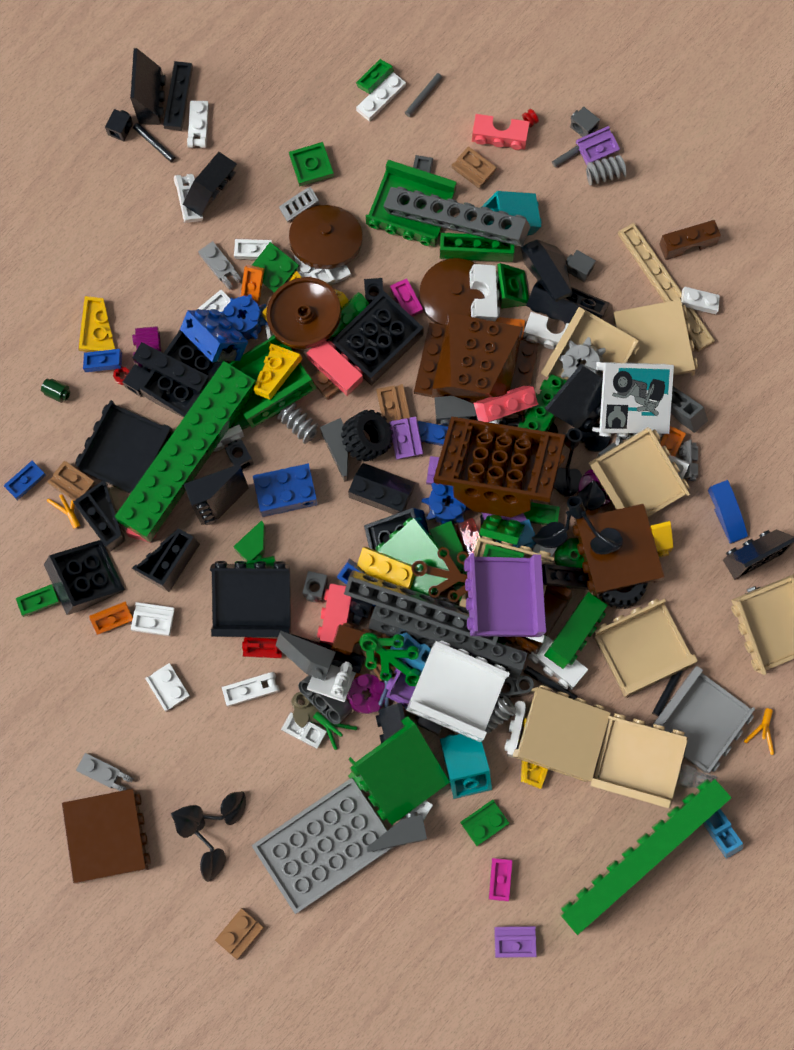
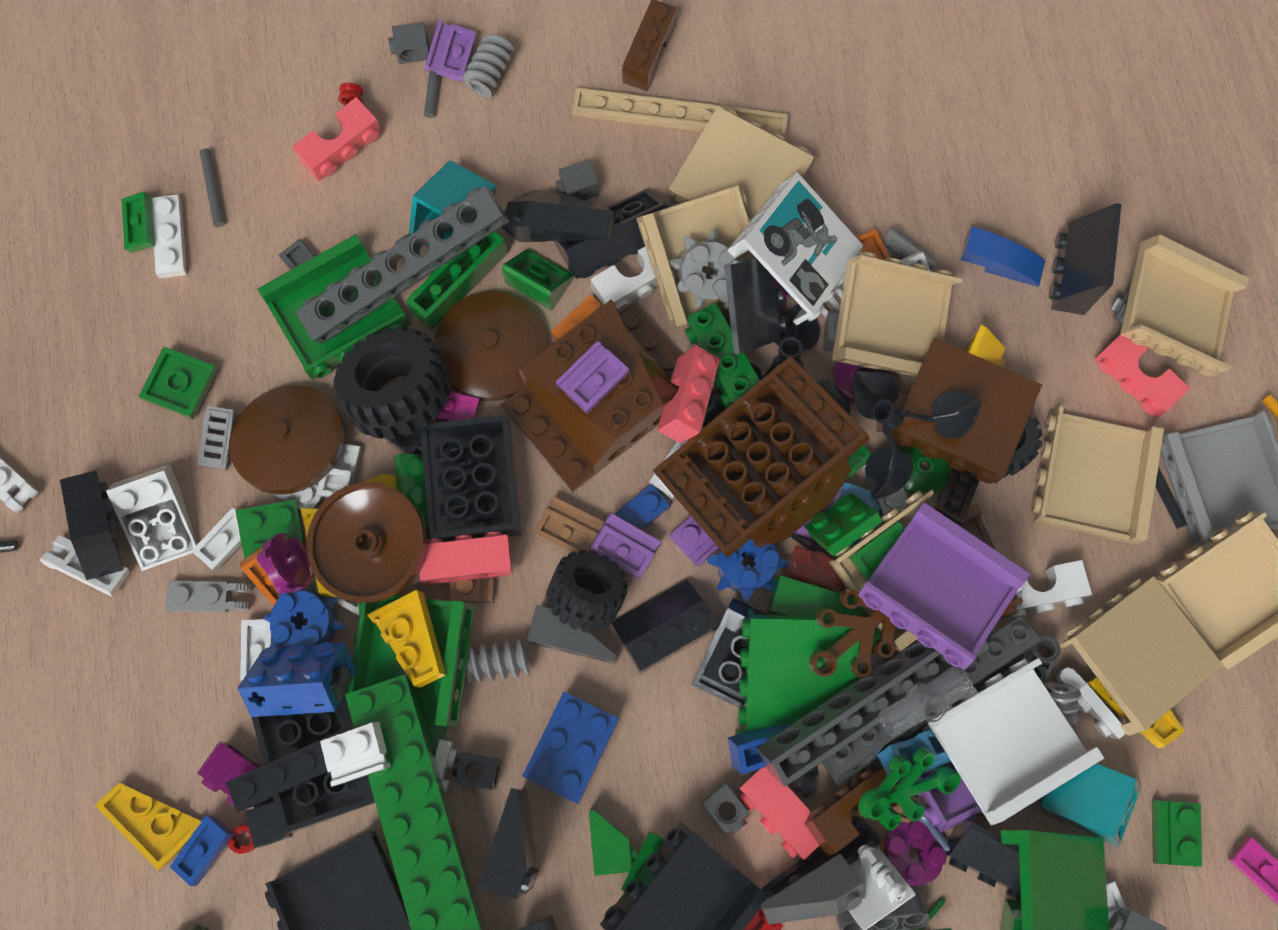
camera: 55 degrees left, 0 degrees up
(200, 387) = (355, 753): none -> white plate
(237, 208) = (153, 516): none -> white slope
(256, 287) = (285, 576): none -> magenta plate
(385, 567) = (780, 703): yellow wing -> none
(391, 276) = (404, 405): none -> black tyre
(428, 625) = (925, 702): none -> clear piece
(455, 407) = (636, 460): dark grey slope -> none
(471, 348) = (592, 377): none -> medium lavender plate
(474, 167) = (354, 202): medium nougat plate -> none
(485, 279) = (508, 297): white arch -> none
(548, 682) = (1066, 615): black bar -> none
(575, 631) = (1027, 536): green brick -> none
(687, 410) = (855, 204): dark grey slope -> none
(700, 300) = (729, 90): white plate -> none
(719, 647) = (1153, 393): none -> coral arch

